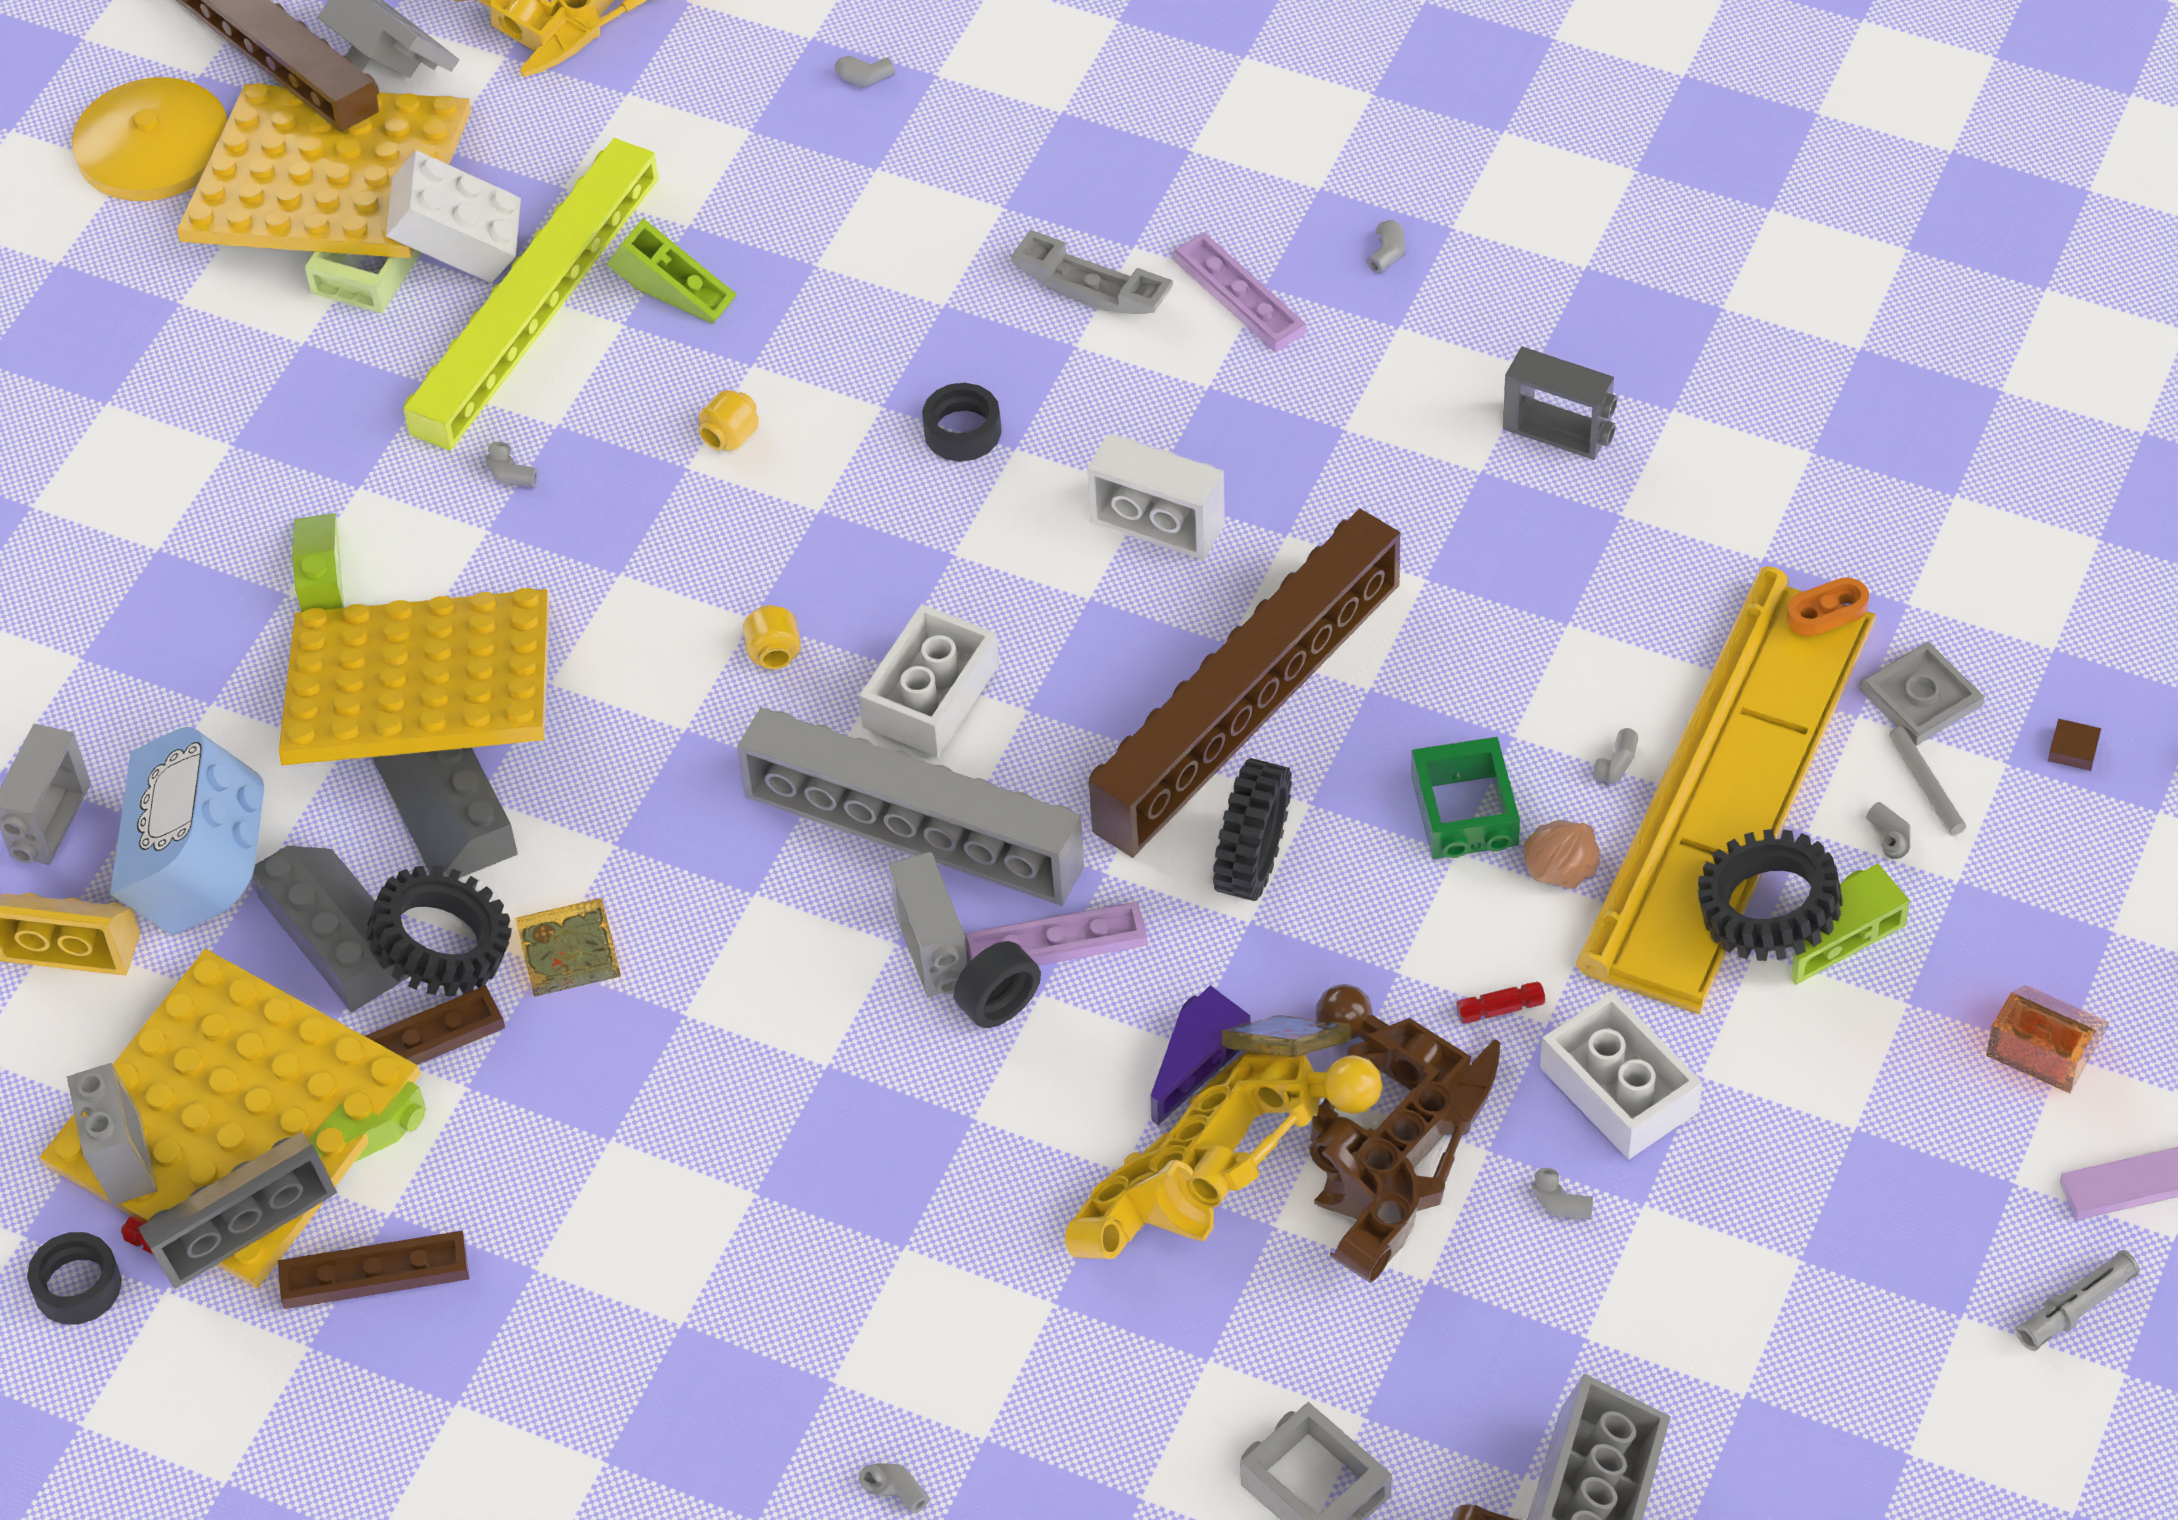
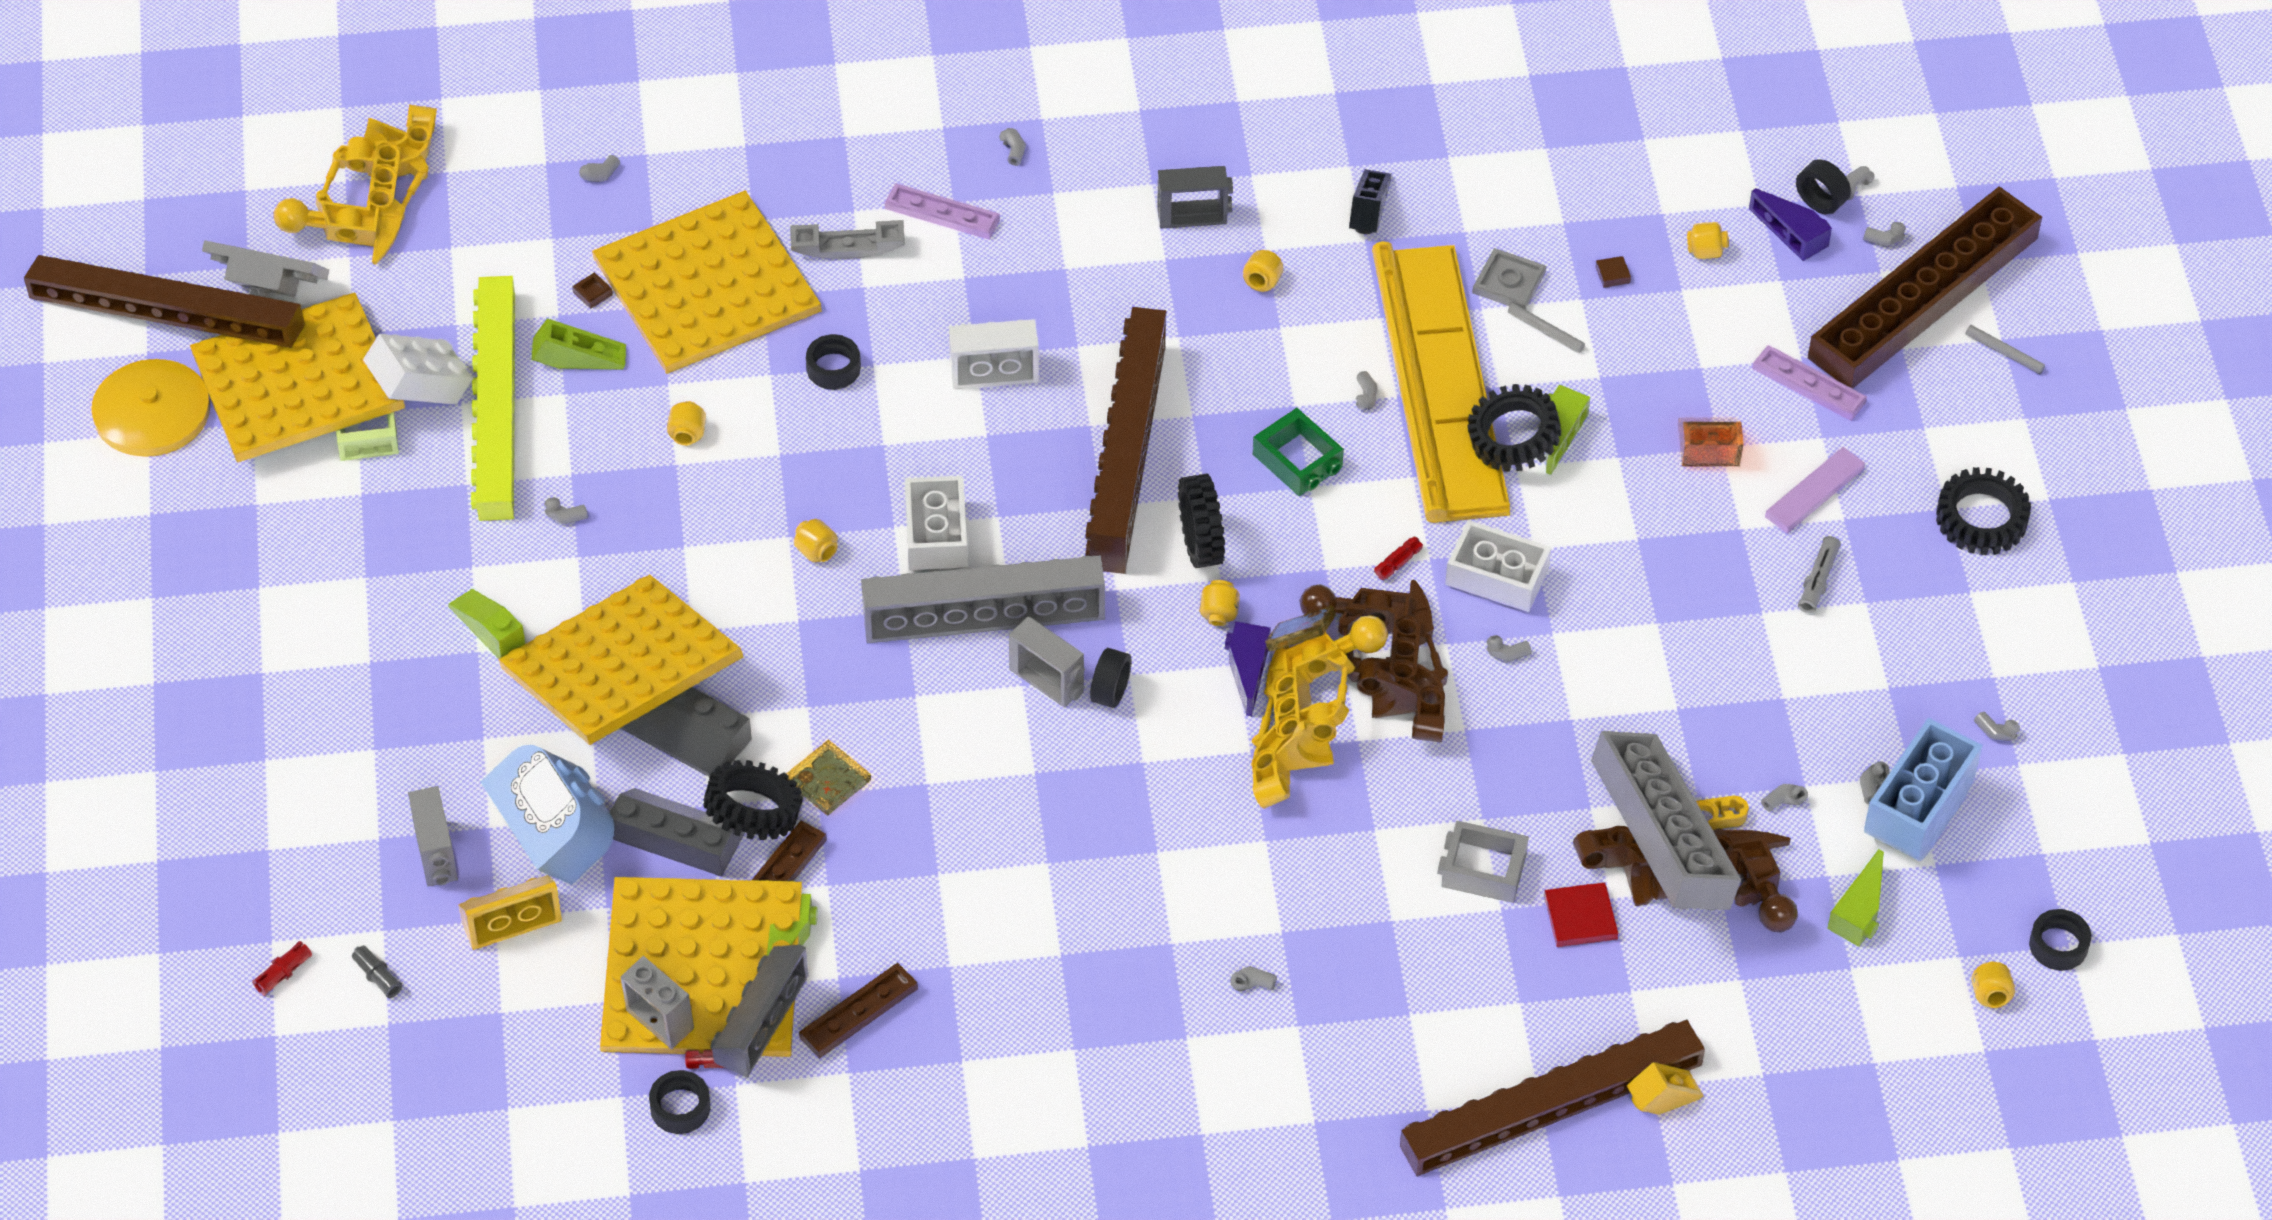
camera: 35 degrees left, 0 degrees up
(747, 212) = (592, 290): none -> reddish brown tile
(888, 259) = (706, 281): none -> yellow plate
(1068, 935) = (1125, 632): lavender tile -> none
(1216, 951) = (1219, 602): none -> yellow head
(1562, 853) = (1375, 459): nougat hair -> none
(1589, 538) = (1263, 270): none -> yellow head
(1797, 507) = (1369, 201): none -> black slope
(1825, 606) = (1425, 255): orange plate -> none
(1896, 830) = (1549, 364): light grey arm -> none

